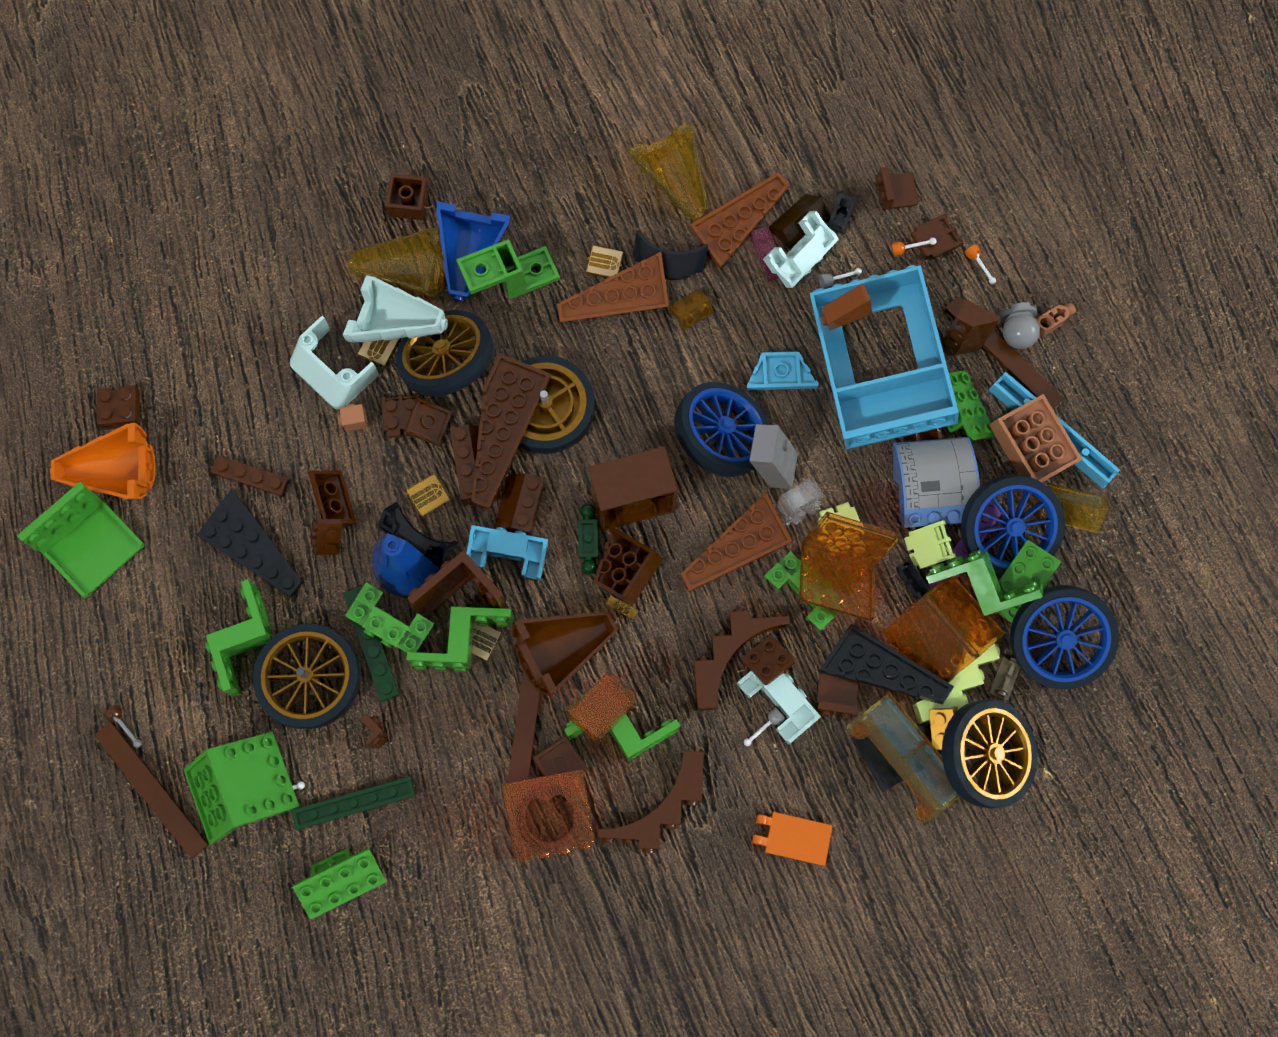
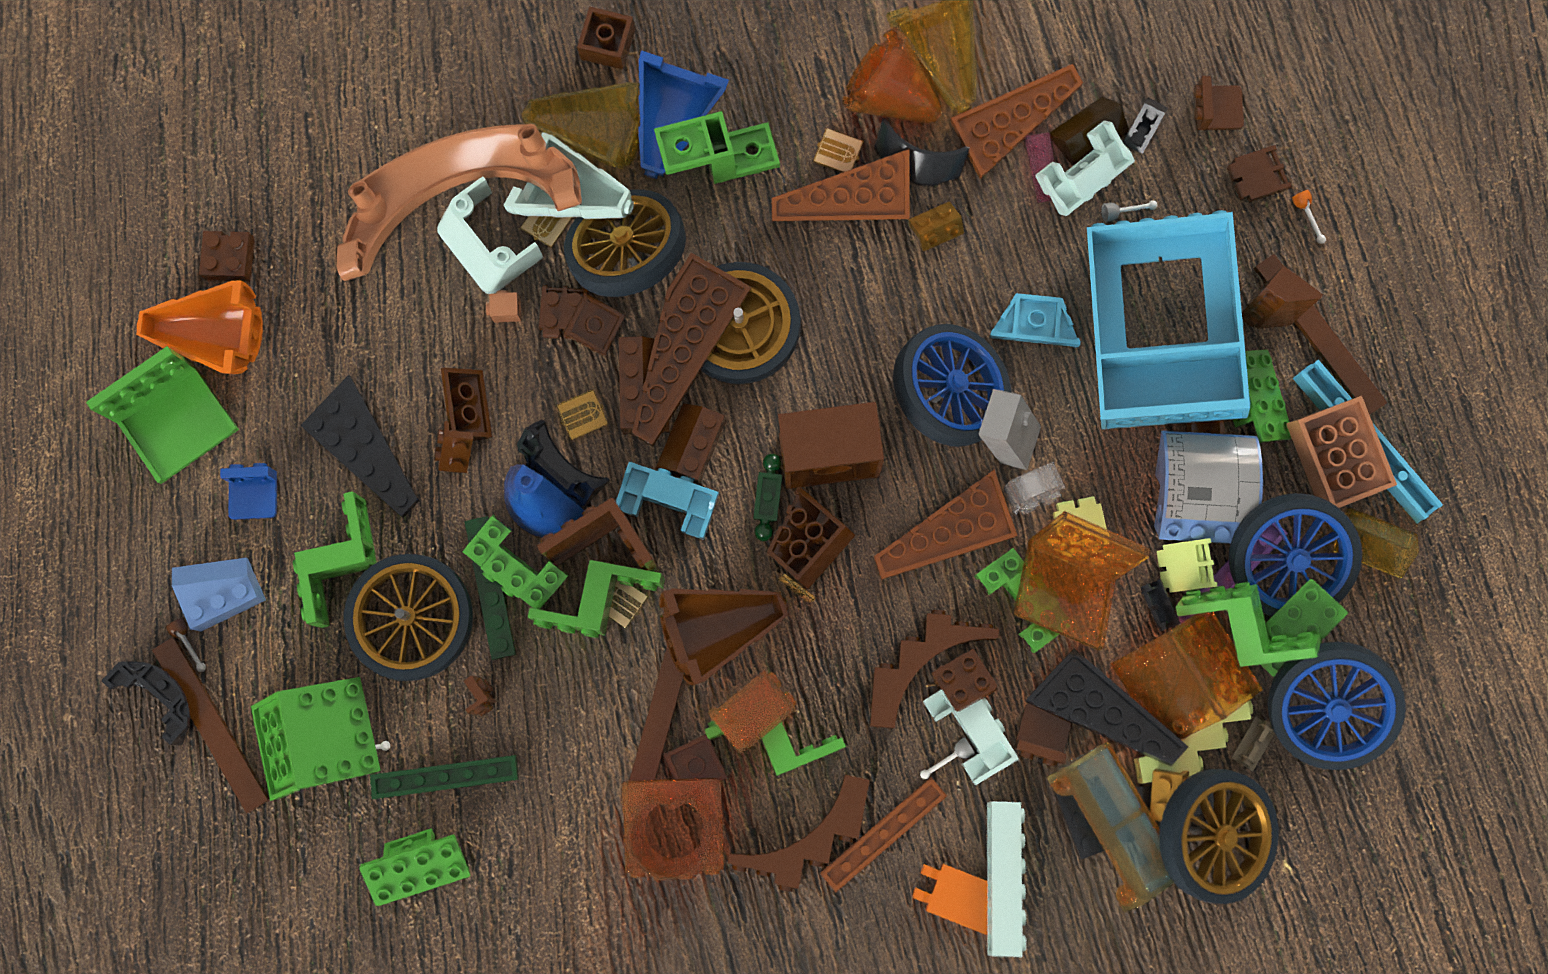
camera: 15 degrees right, 5 degrees up
(104, 762) = (162, 687): none -> black windscreen
(142, 679) = (215, 591): none -> medium blue wedge
(162, 593) = (251, 491): none -> blue bracket
(249, 476) = (372, 362): reddish brown plate -> none
(268, 323) = (420, 174): none -> nougat panel
(640, 203) = (892, 83): none -> clear orange cone
(721, 796) = (883, 834): none -> dark orange tile
(824, 816) = (1005, 879): none -> light aqua brick
(847, 308) = (1130, 255): dark orange slope -> none
(899, 247) = (1209, 181): hinge -> none
(1020, 326) = (1347, 305): light grey tile -> none
(1061, 312) = (1404, 294): nougat piece -> none

